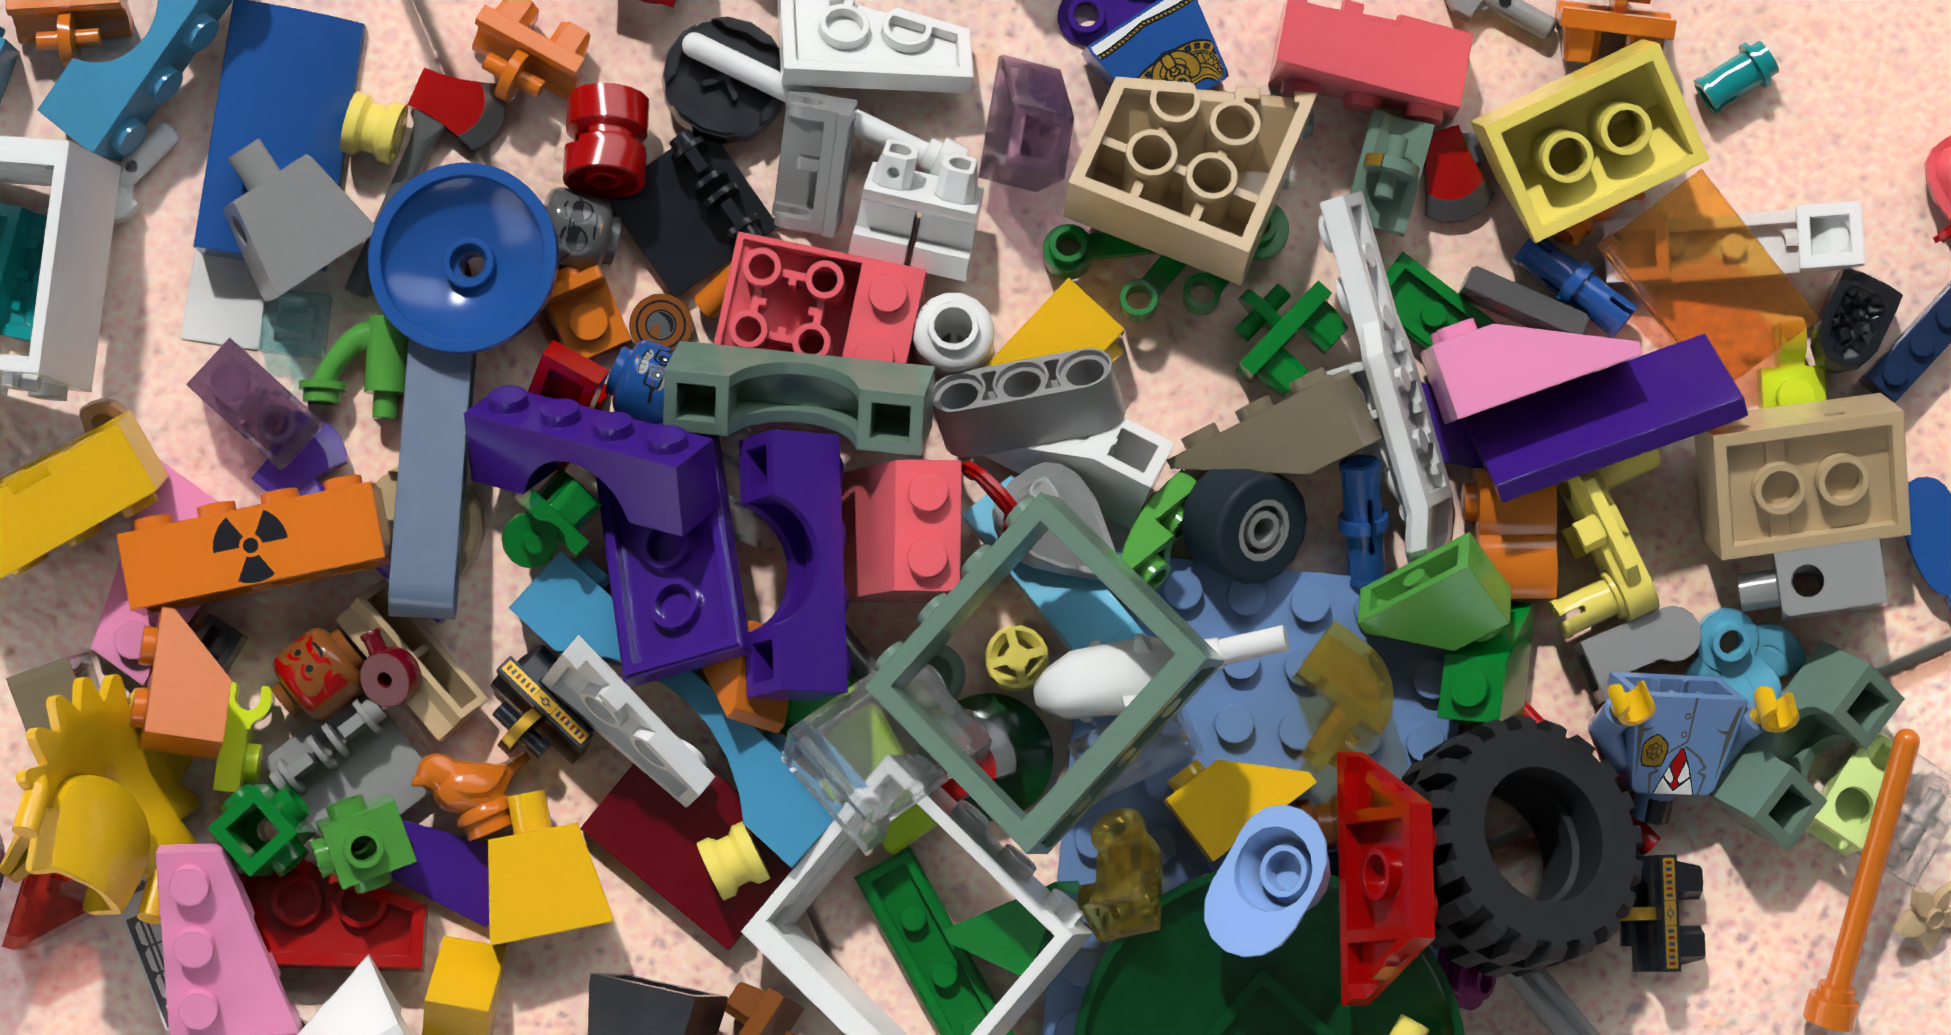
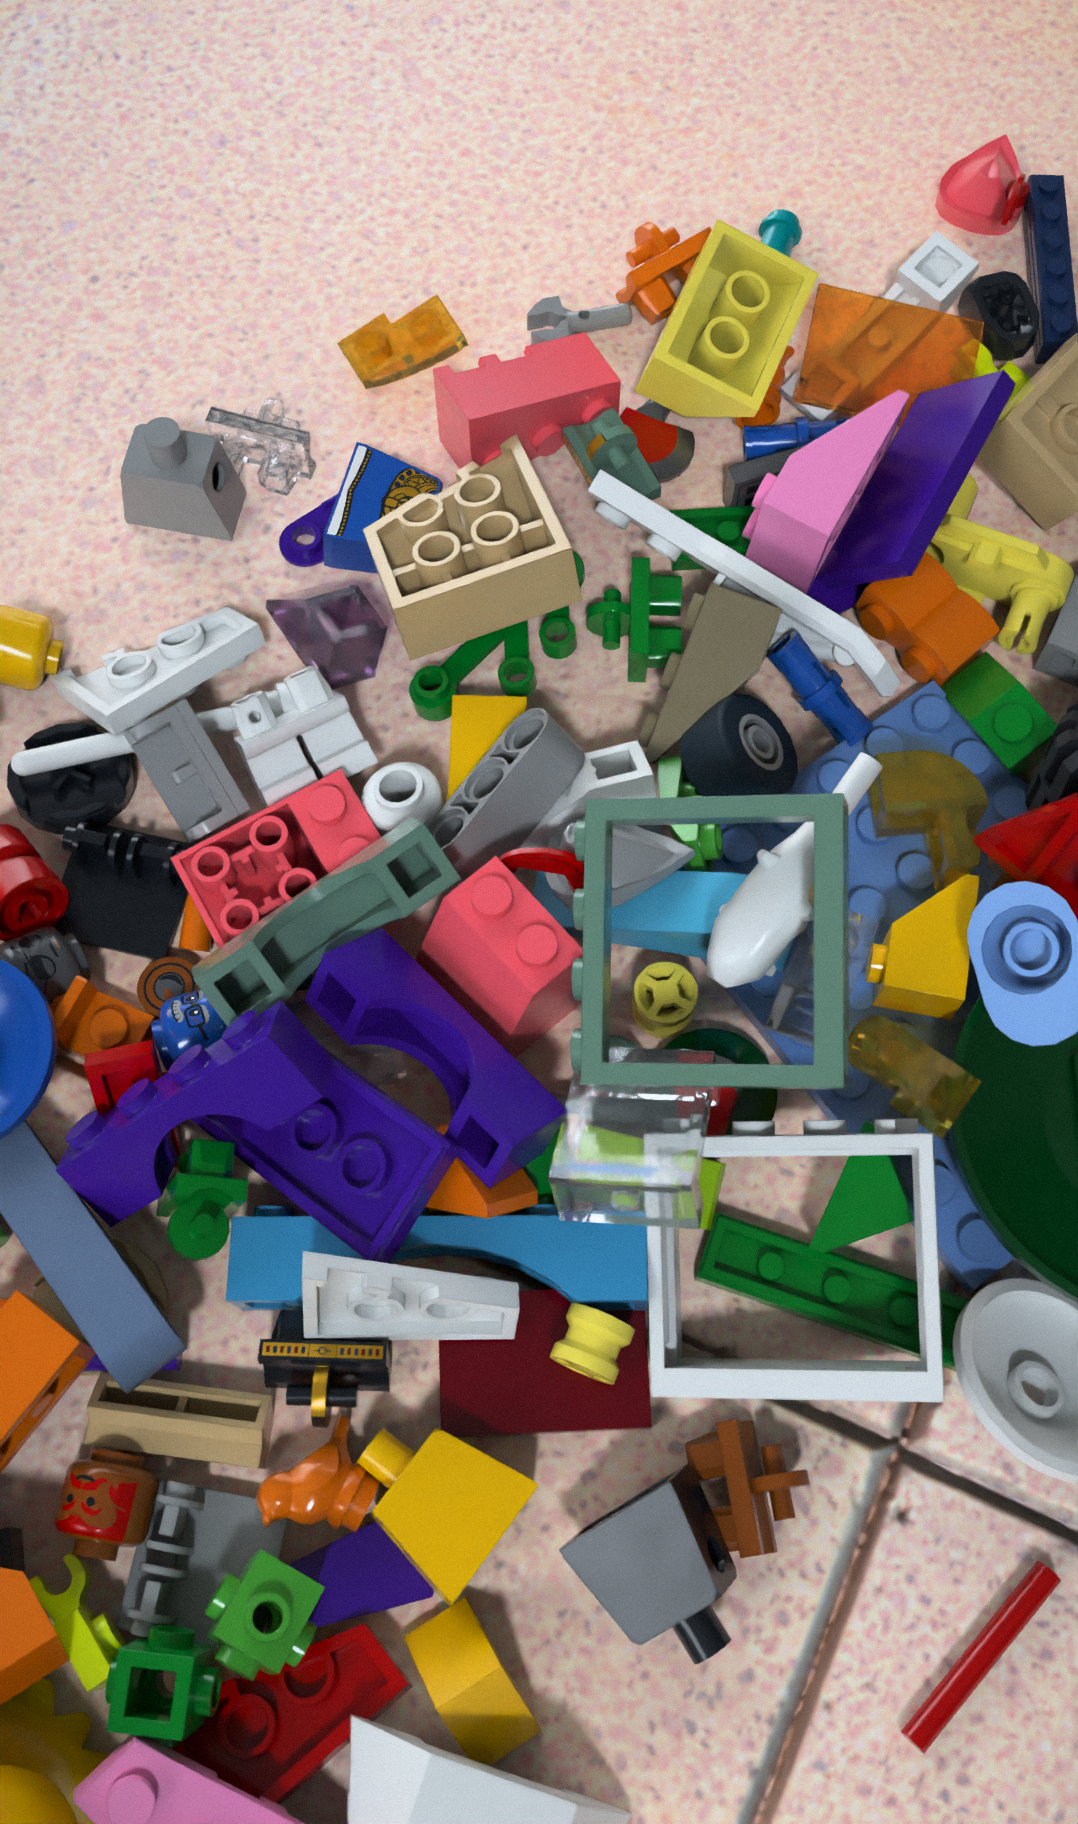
camera: 40 degrees left, 15 degrees down
(389, 673) = (152, 1440): dark red piece -> none
(1439, 598) = (929, 683): bright green slope -> none

